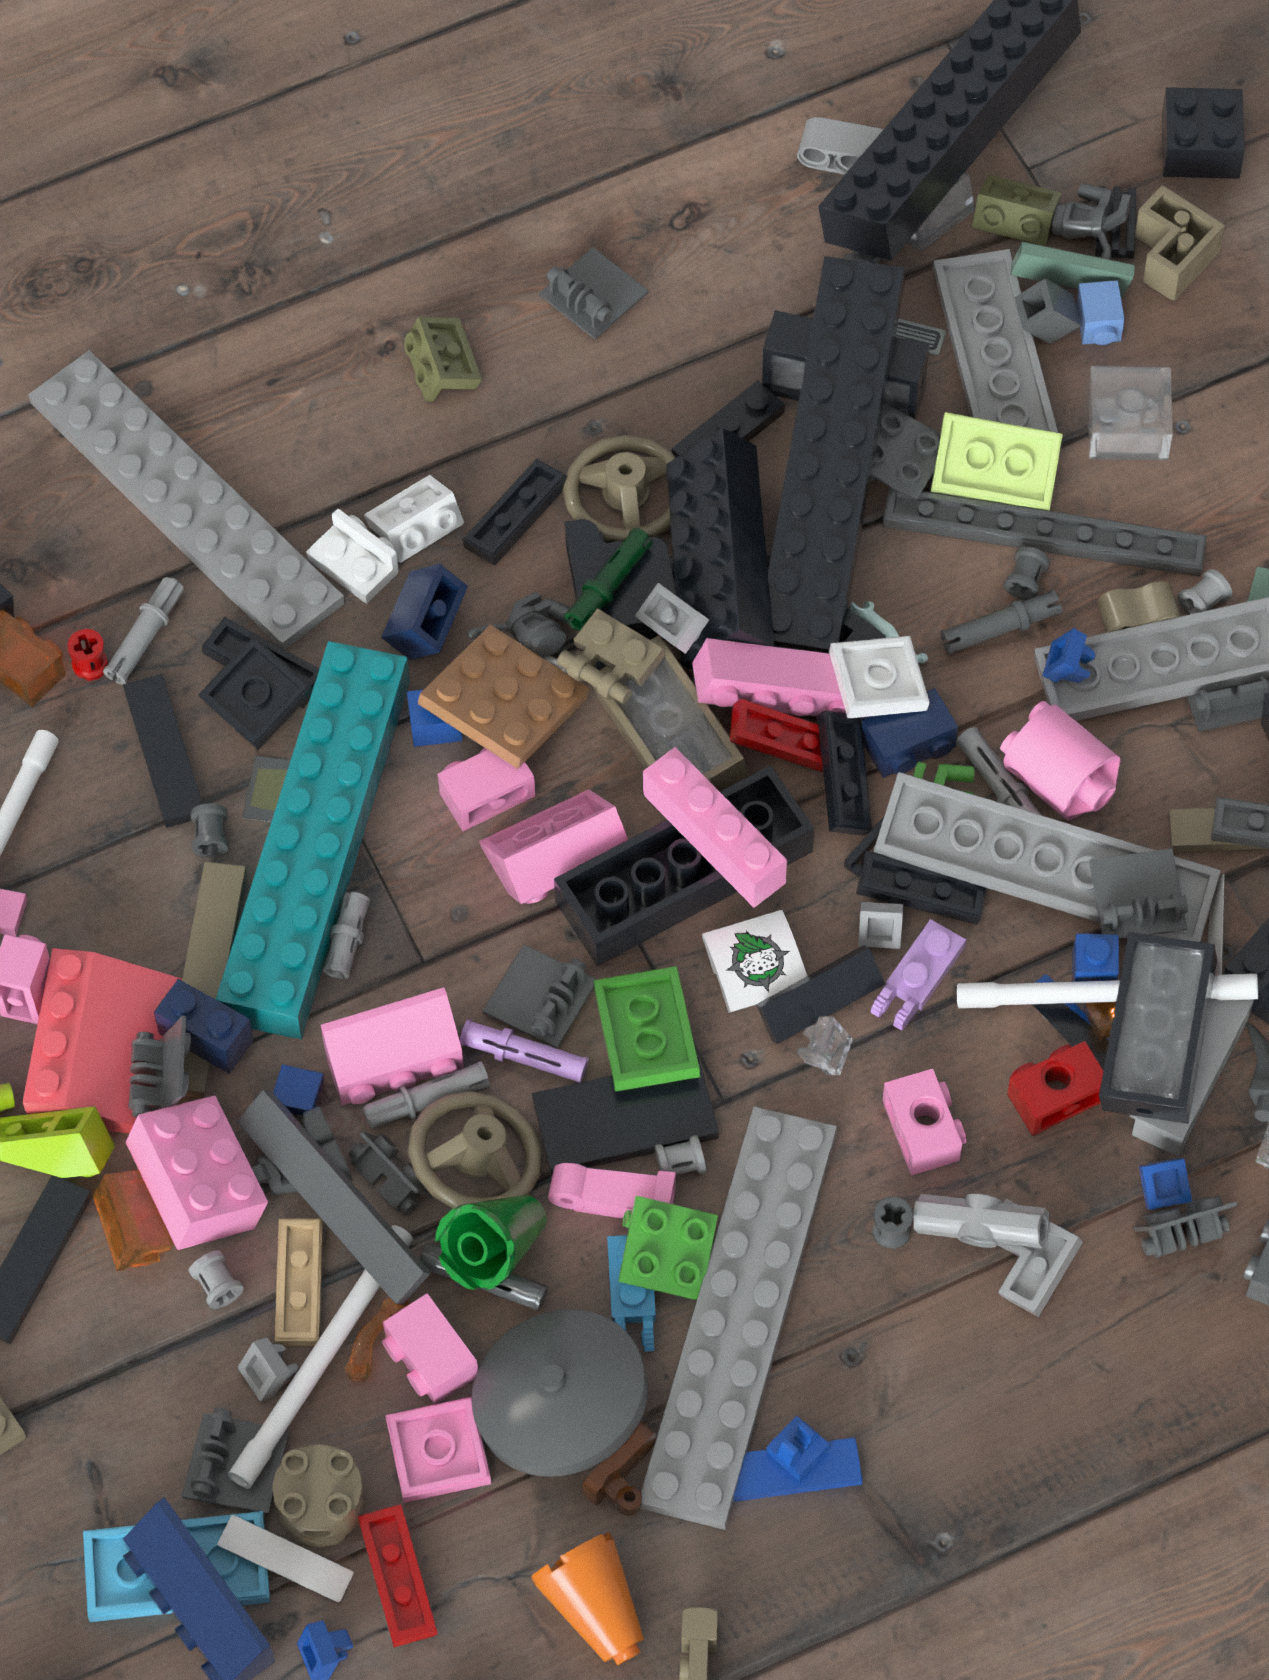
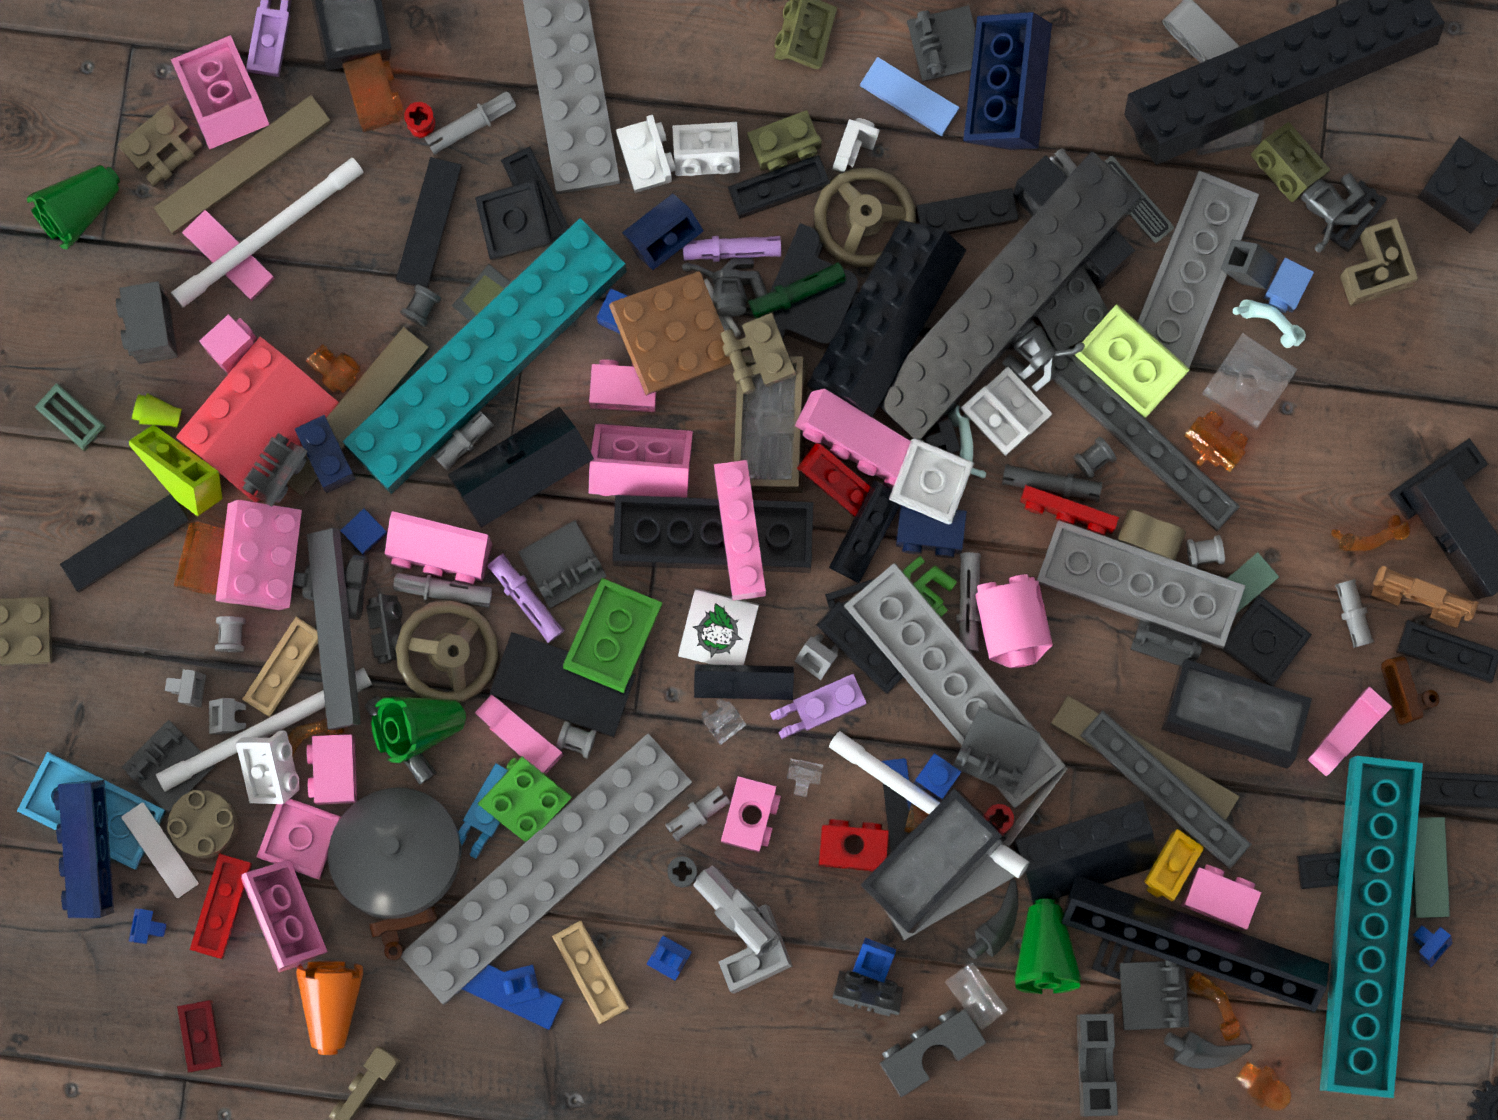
camera: 30 degrees right, 20 degrees up
(162, 944) = (336, 372): none -> clear orange plate
(203, 1363) = (189, 687): none -> light grey tile
(354, 1389) = (268, 768): none -> white bracket
(430, 913) = (520, 466): none -> black brick
(476, 1534) = (284, 915): none -> bright pink slope
(491, 467) = (784, 141): none -> olive bracket
(493, 600) = (732, 248): none -> lavender pin
(568, 416) = (856, 134): none -> white bracket
(591, 359) = (909, 96): none -> light blue tile
(672, 618) = (816, 352): light grey plate -> none
(682, 286) = (1008, 81): none -> dark blue slope
(864, 1393) = (590, 972): none -> tan tile
(866, 1155) = (697, 813): none -> light grey pin
(895, 504) = (1037, 350): none -> dark grey piece
(905, 580) = (1006, 411): none -> white slope
(940, 1324) = (669, 958): none -> blue tile
(953, 1048) = (804, 773): none -> clear tile
(1021, 638) = (1068, 511): none -> red plate
(1065, 658) = (1069, 544): blue tile -> none
(1068, 267) = (1290, 241): sand green tile -> none
(1077, 357) = (1292, 334): none -> light aqua piece
(1138, 490) = (1213, 444): none -> clear orange hips

